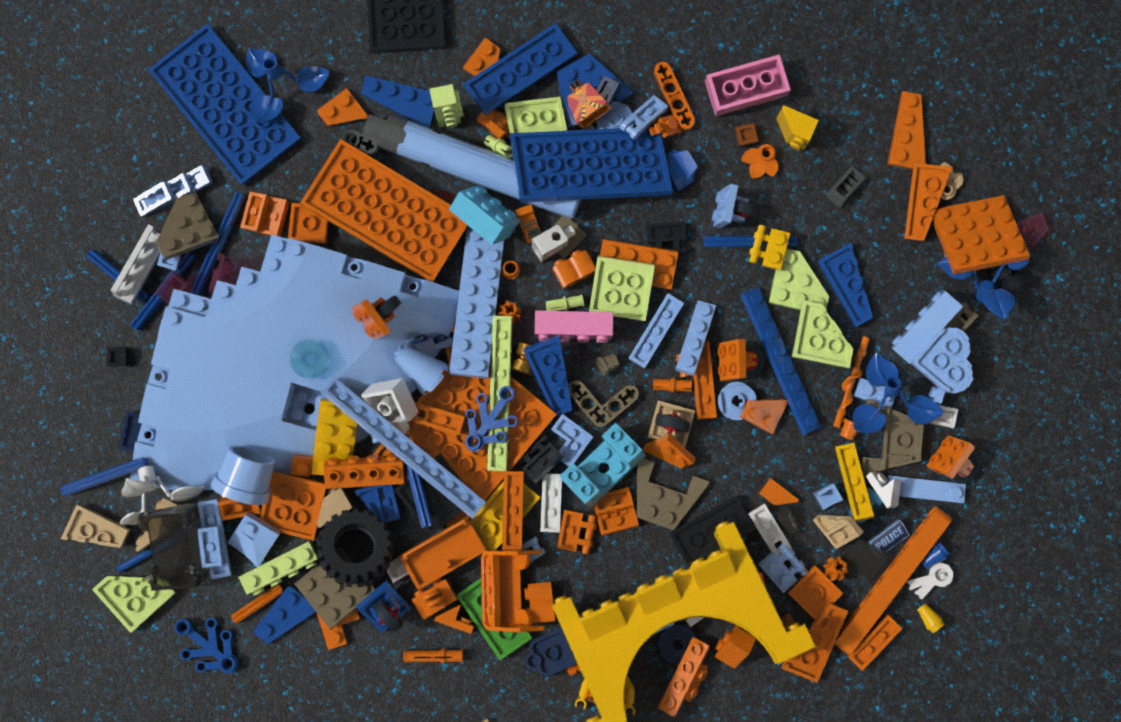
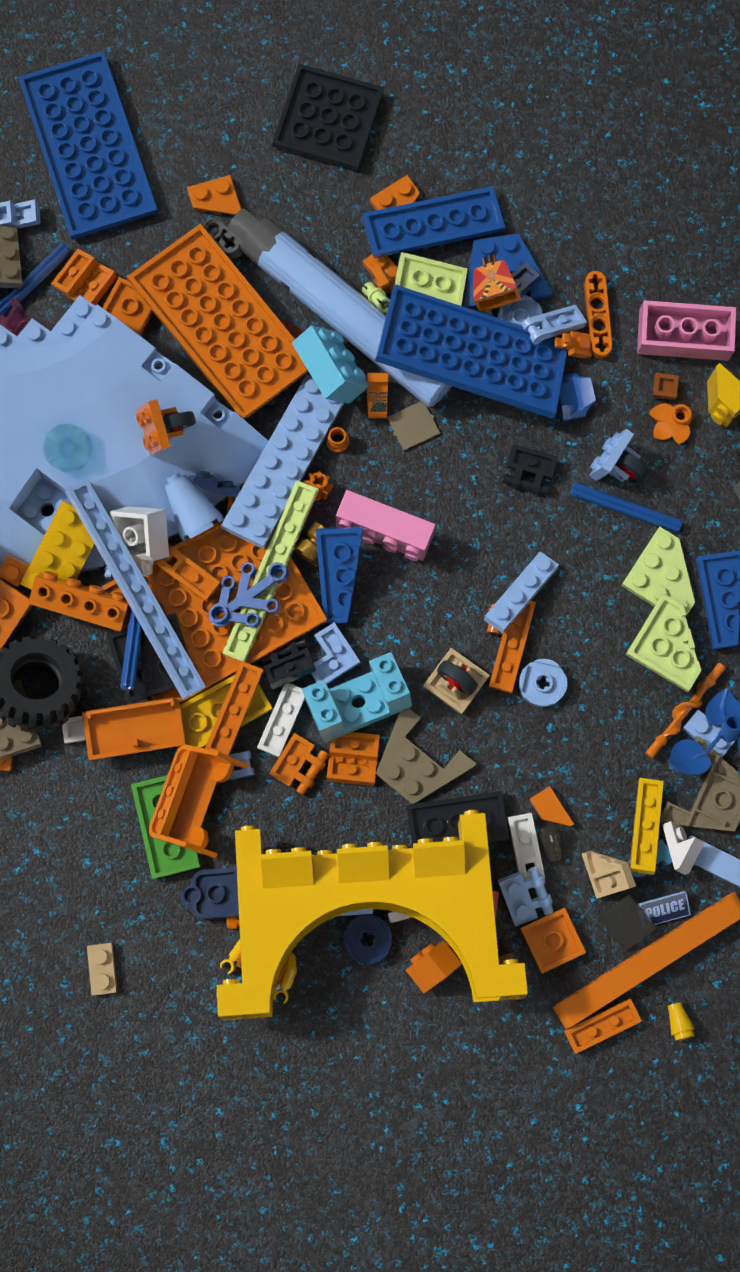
camera: 20 degrees right, 5 degrees down
(265, 62) = (151, 117): blue plant -> none
(334, 504) = (33, 625): tan slope -> none
(381, 501) = (88, 645): blue wing -> none
(384, 608) = (42, 766): blue plate -> none
(401, 99) = (287, 209): blue wing -> none
(433, 656) = (51, 836): orange pin -> none
(435, 598) = (105, 778): orange brick -> none
(446, 105) = (333, 227): yellowish green brick -> none
(450, 619) = (114, 808): orange slope -> none
(540, 601) = (226, 821): orange brick -> none
(545, 246) = (395, 423): white torso -> none
(565, 303) = (391, 500): yellowish green axle -> none
(573, 269) = (410, 464): orange brick -> none
(605, 409) = (386, 635): dark tan beam -> none
(607, 363) = (408, 585): dark tan piece -> none
(622, 287) = (457, 503): yellowish green plate -> none
(656, 331) = (478, 568): light blue plate -> none
(664, 259) = (485, 484): orange plate -> none
(671, 451) = (443, 711): orange wing -> none
(672, 385) = (474, 636): orange pin -> none
(686, 678) = (363, 982): orange bracket -> none
(739, 360) = (563, 636): orange plate -> none
(764, 413) = (569, 708): orange wing -> none
(775, 248) = (652, 524): yellow plate -> none
(780, 361) = (611, 656): blue plate -> none
(824, 634) = (520, 1017): orange wing -> none
(827, 496) = (609, 832): light blue panel -> none
(835, 568) = (587, 920): orange gear -> none
(848, 430) = (661, 764): orange piece -> none
(935, 555) = (712, 950): blue cone -> none
(939, 575) = (709, 975): white piece -> none

